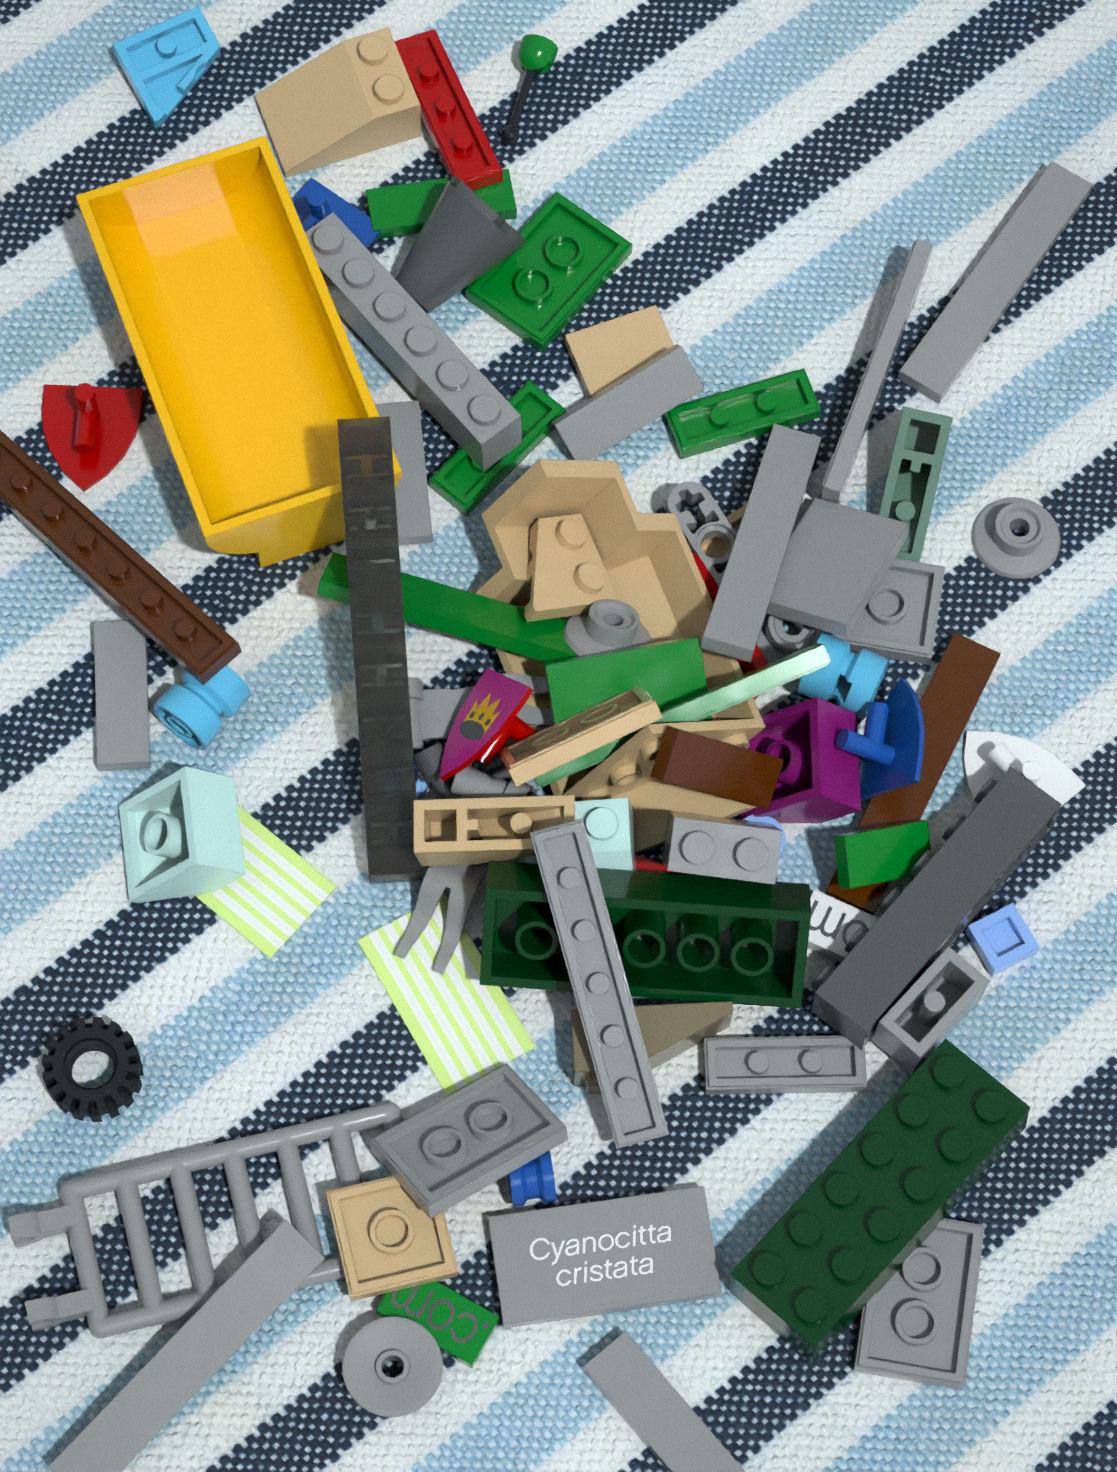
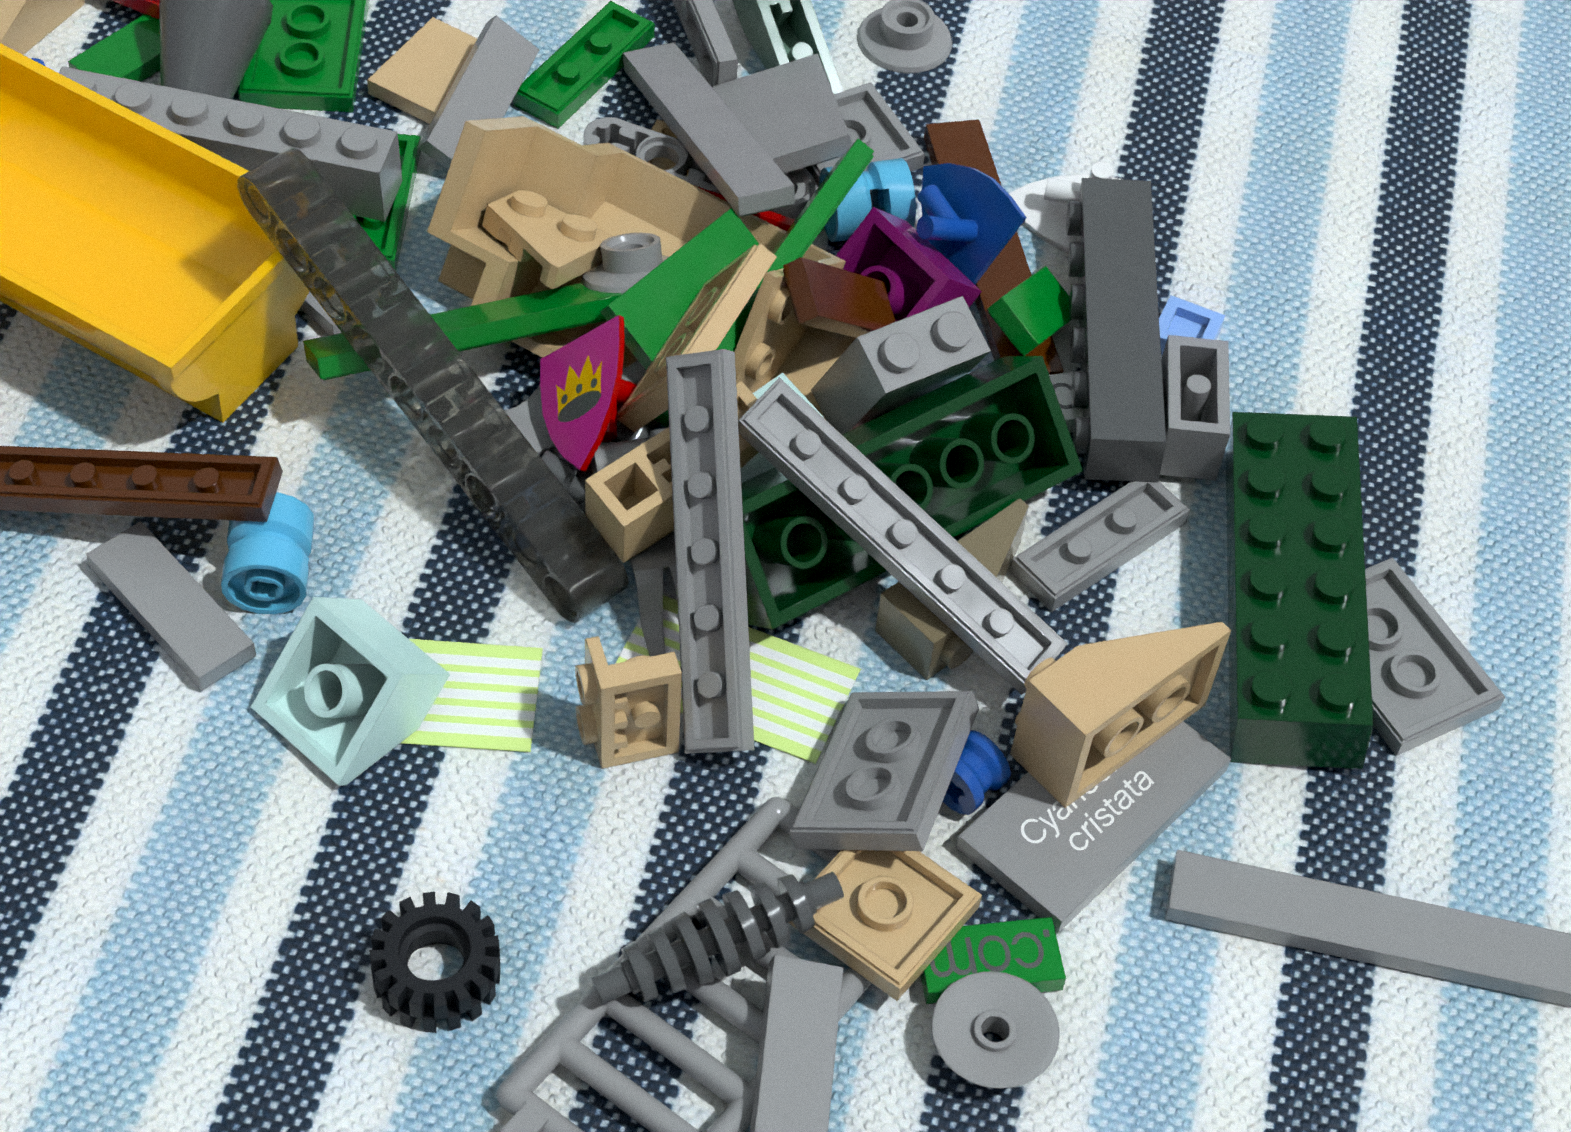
camera: 40 degrees left, 15 degrees down
(260, 1182) = (718, 937): none -> dark grey piece
(334, 979) = (628, 705): none -> tan bracket
(457, 908) = (710, 552): none -> light grey tile
(640, 1204) = (1111, 704): none -> tan slope

